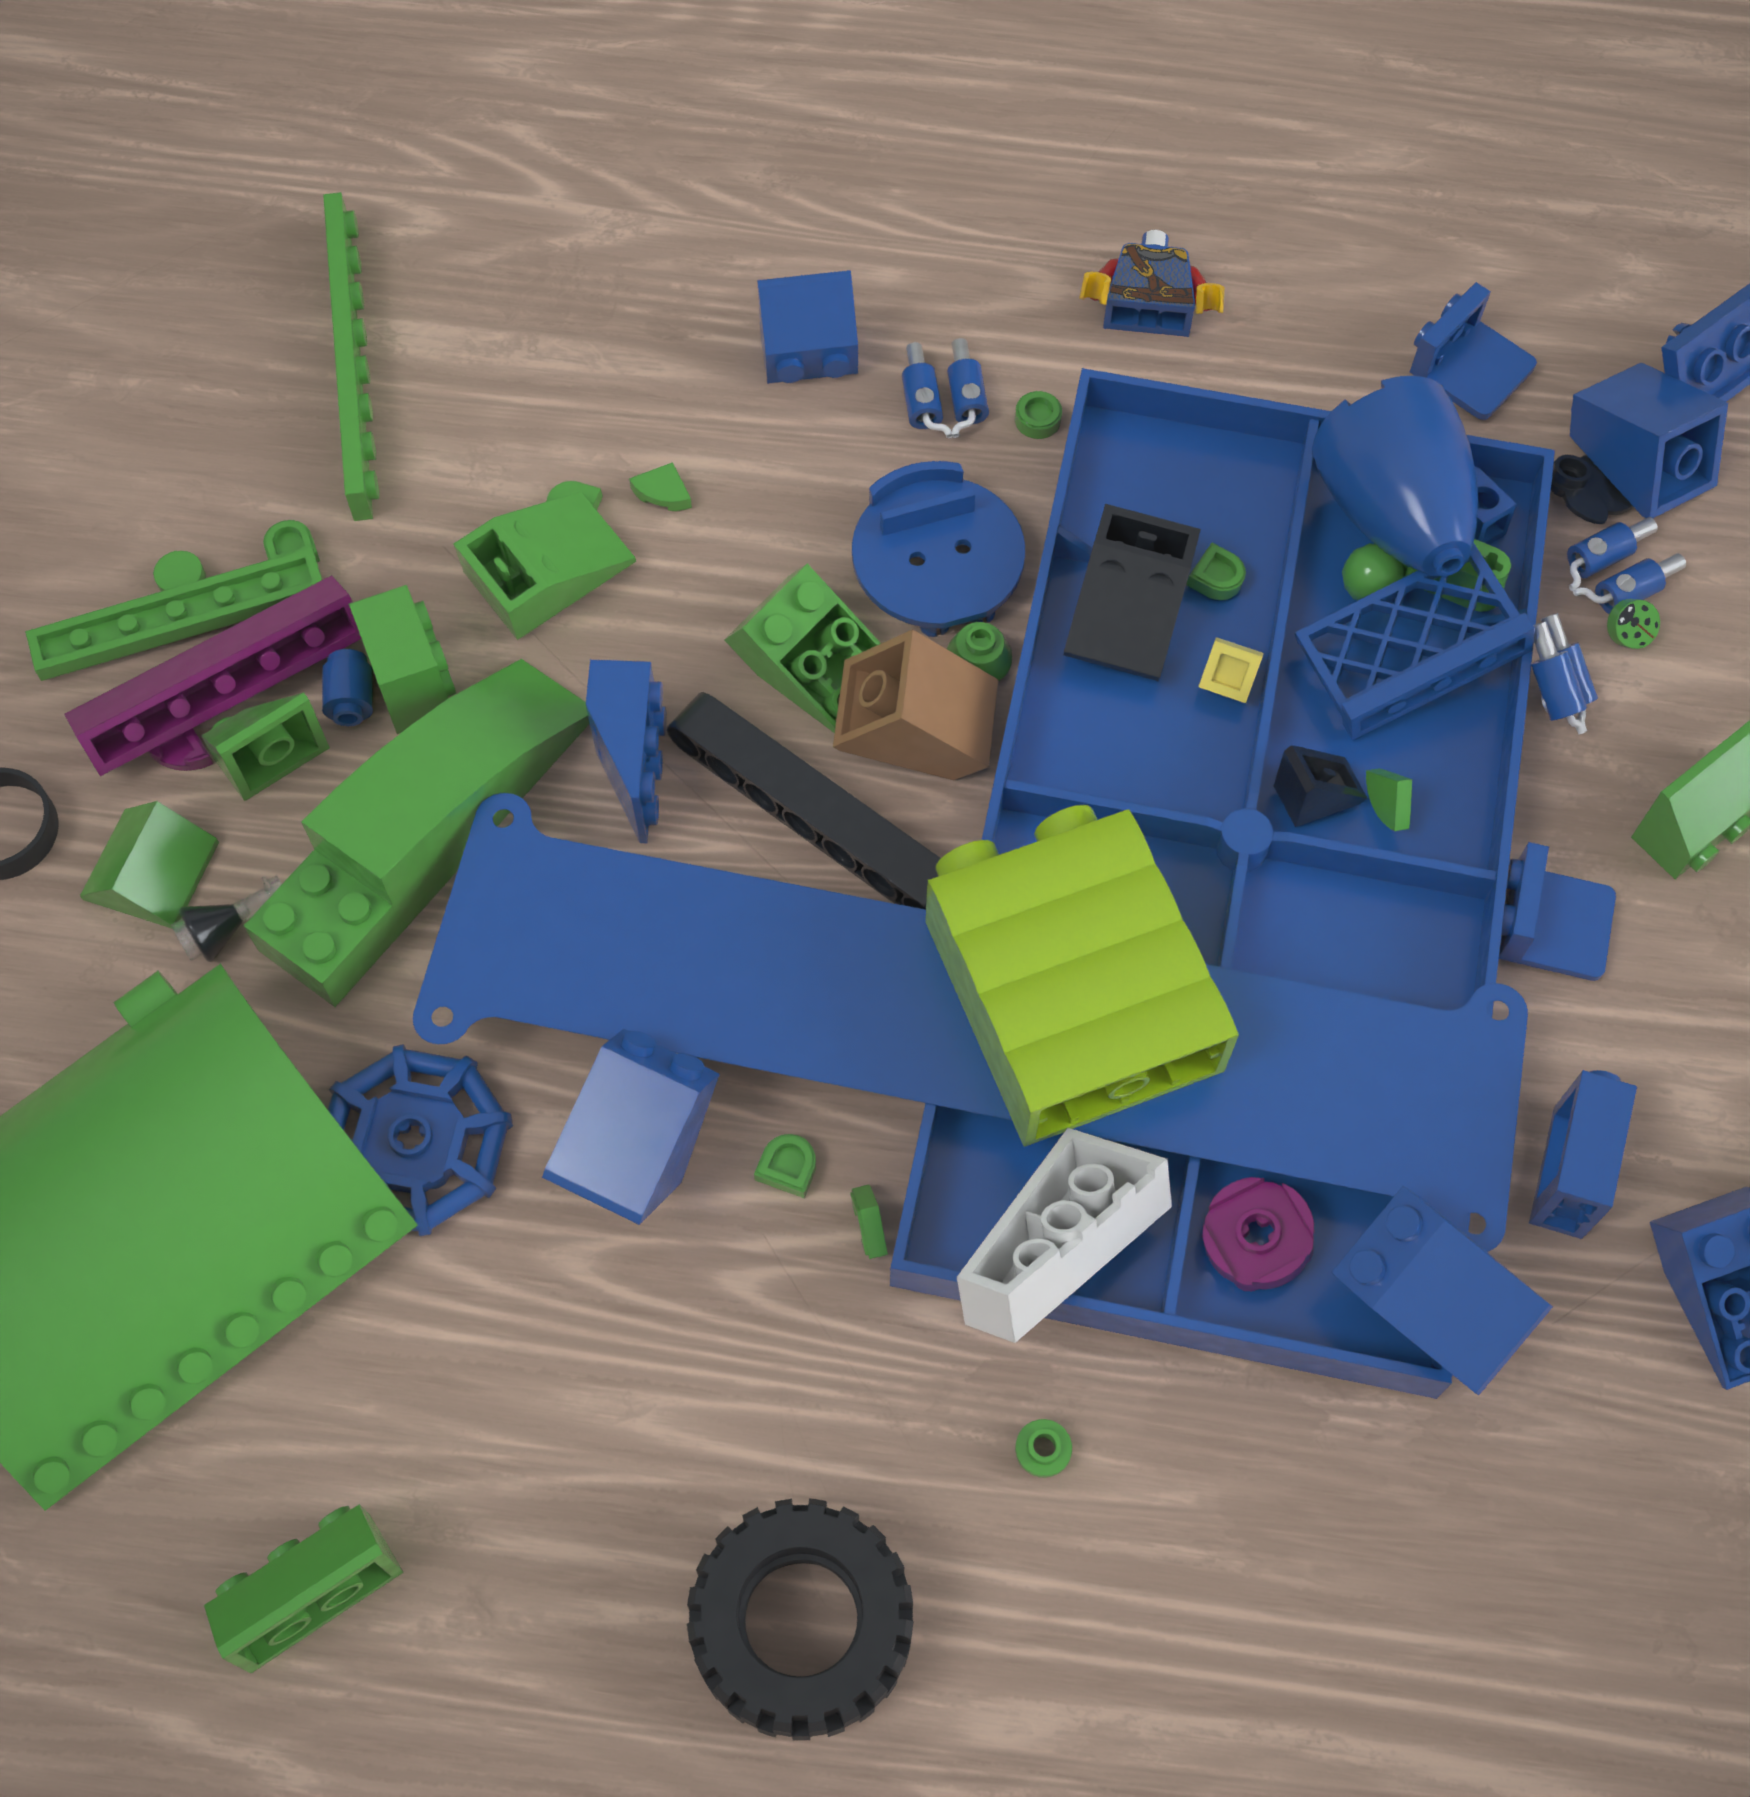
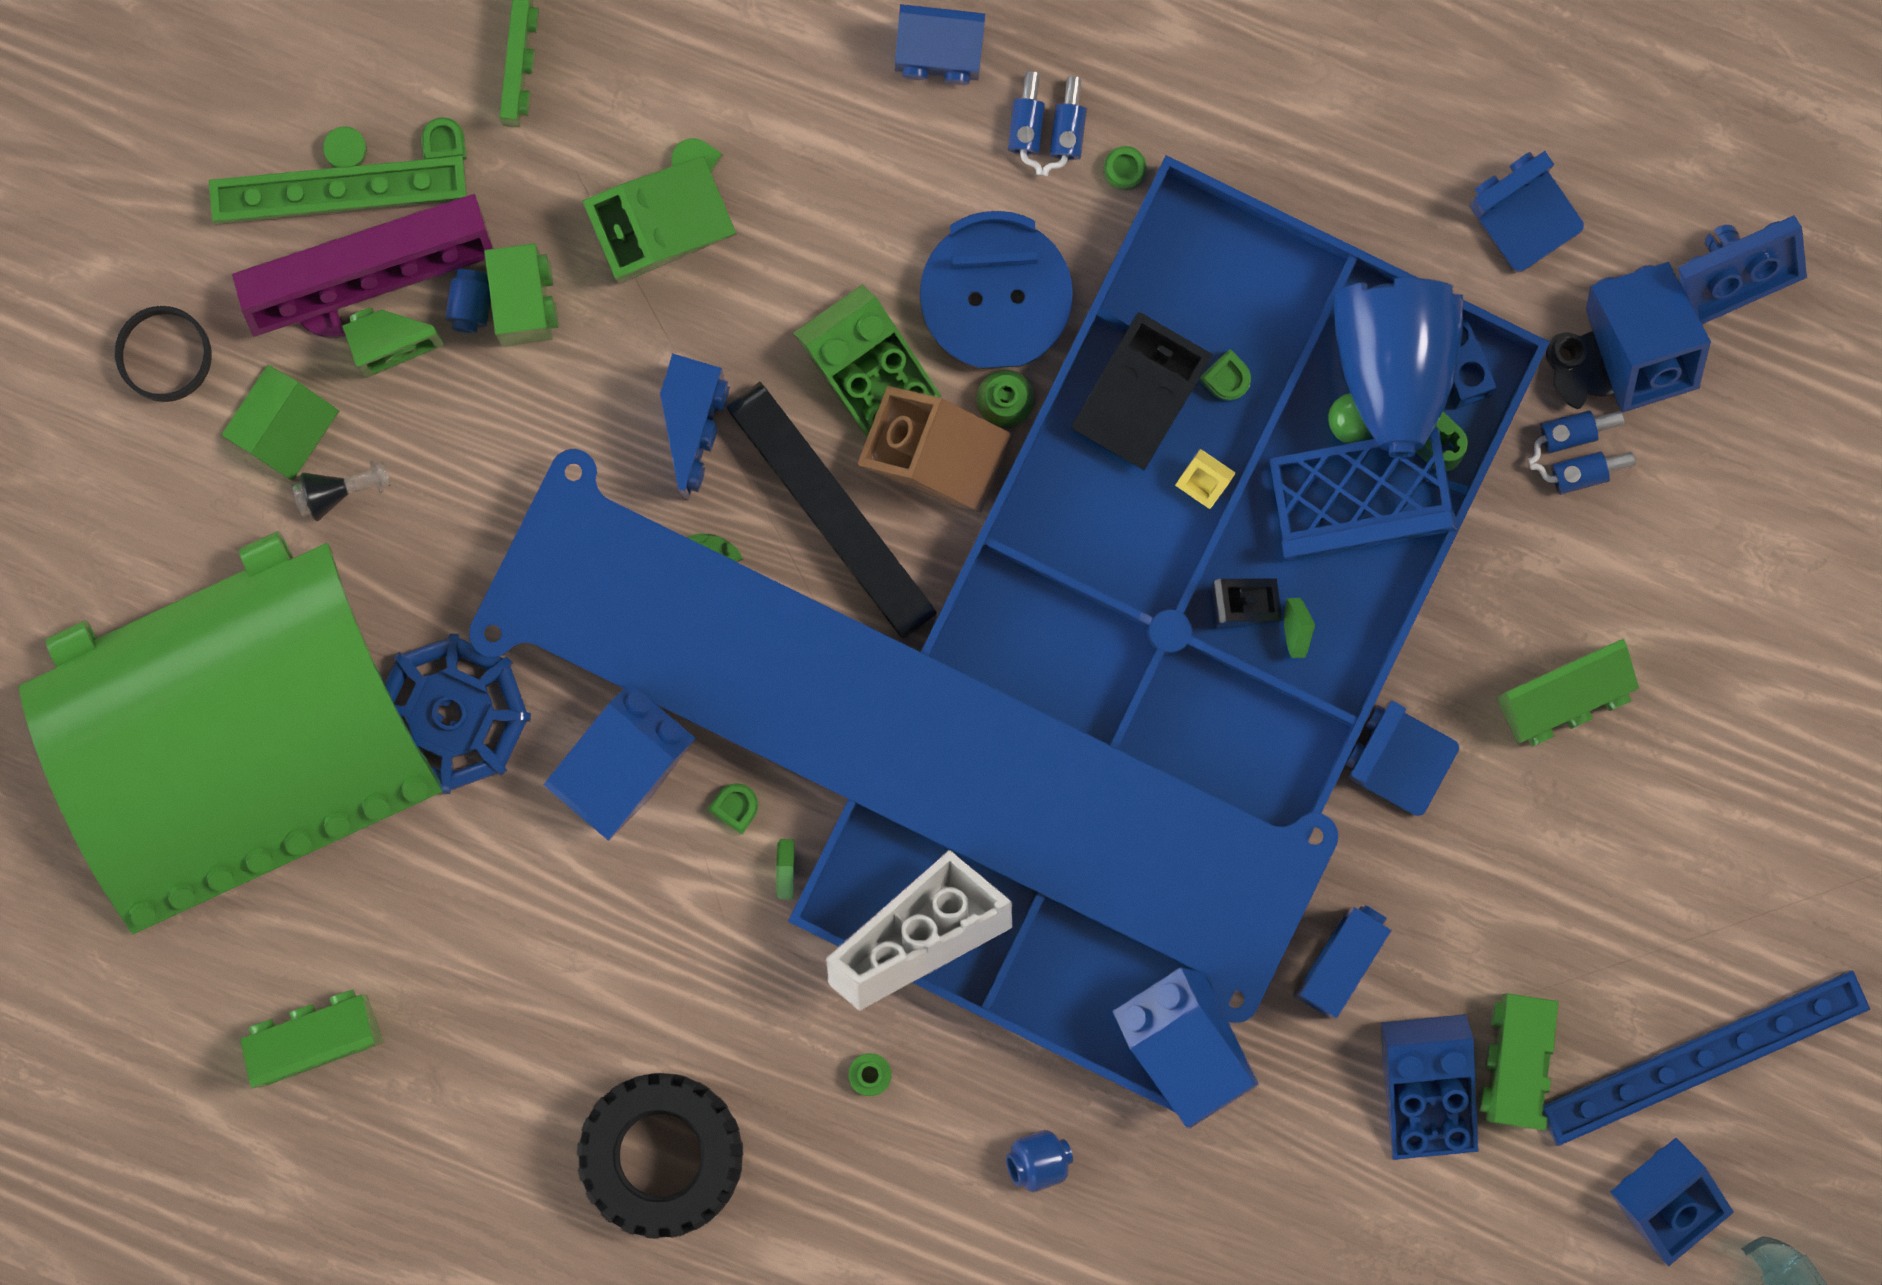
camera: 10 degrees right, 20 degrees up
(403, 823) = (509, 440): bright green slope -> none
(662, 488) = (775, 163): bright green tile -> none
(1076, 972) = (986, 730): lime brick -> none
(1152, 288) = (1261, 65): torso -> none
(1252, 1264) = (1054, 946): magenta plate -> none
(1292, 1501) = (1039, 1161): none -> blue head
(1562, 674) = (1481, 553): blue piece -> none
(1633, 623) = (1567, 510): bright green tile -> none

